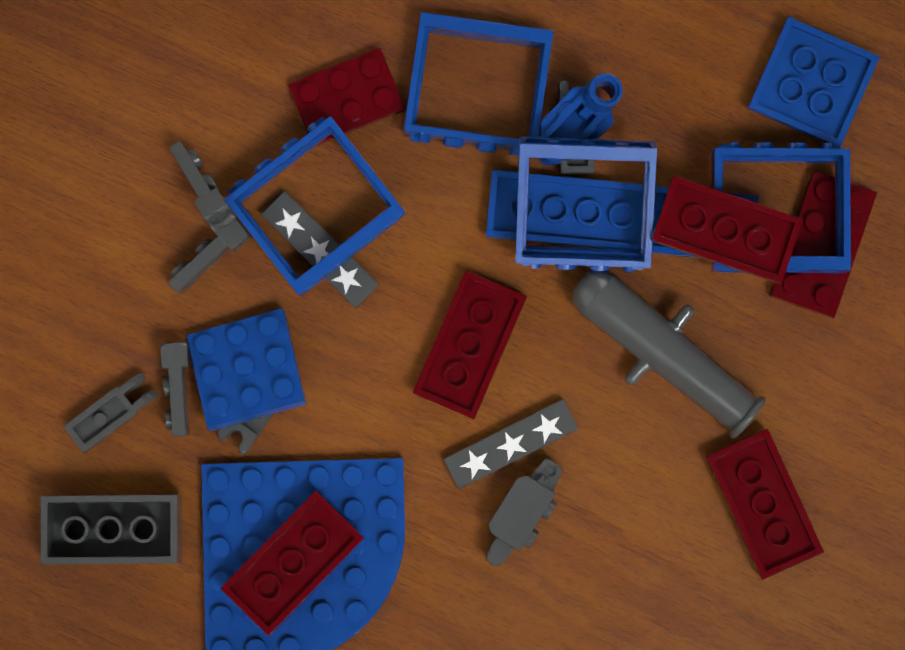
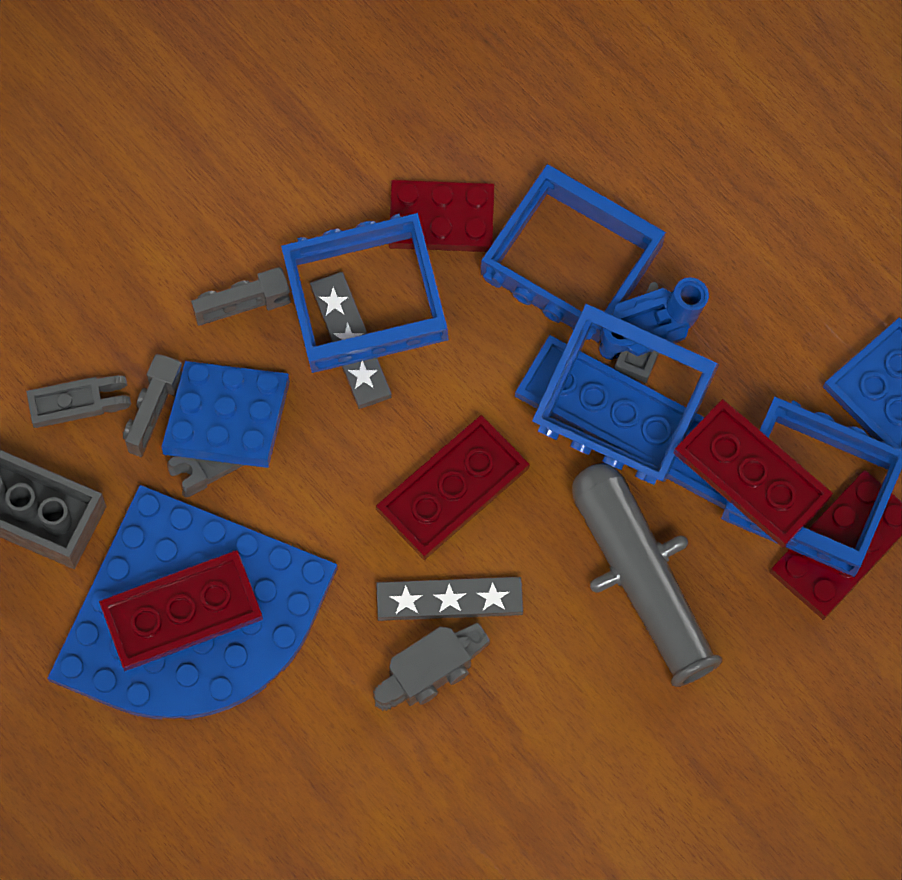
camera: 20 degrees right, 15 degrees down
(210, 201) = (267, 240): dark grey plate -> none
(764, 504) = (677, 766): dark red plate -> none

